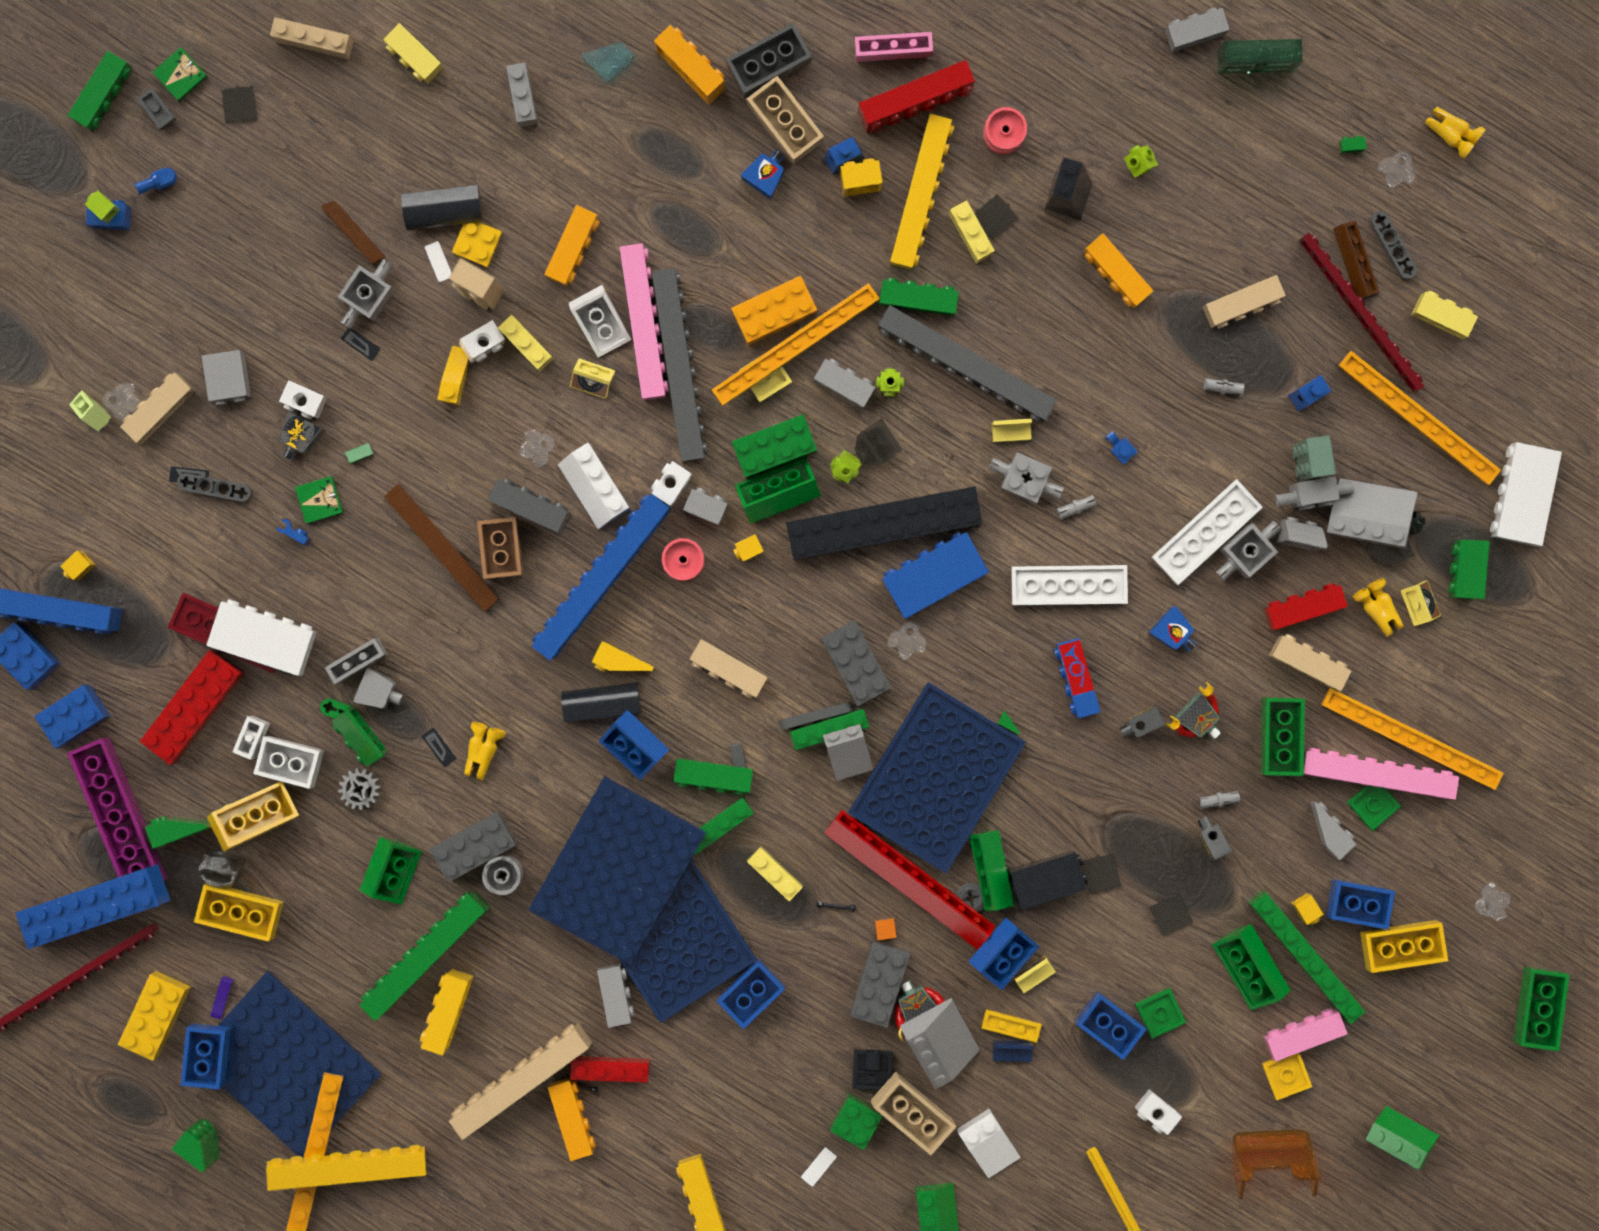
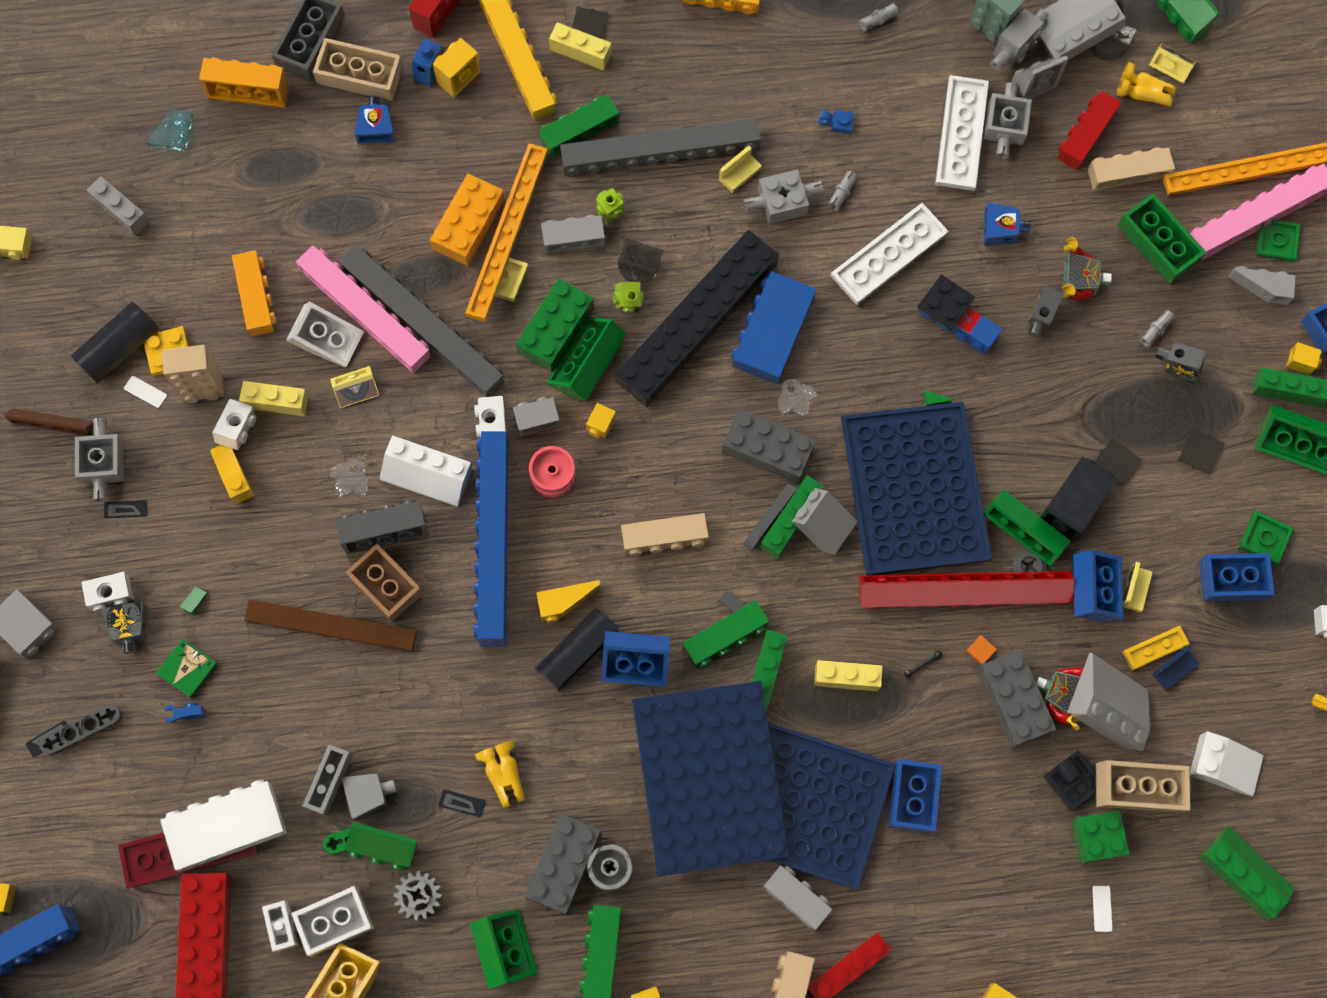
camera: 45 degrees left, 15 degrees down
(1075, 659) = (946, 302): none -> black plate

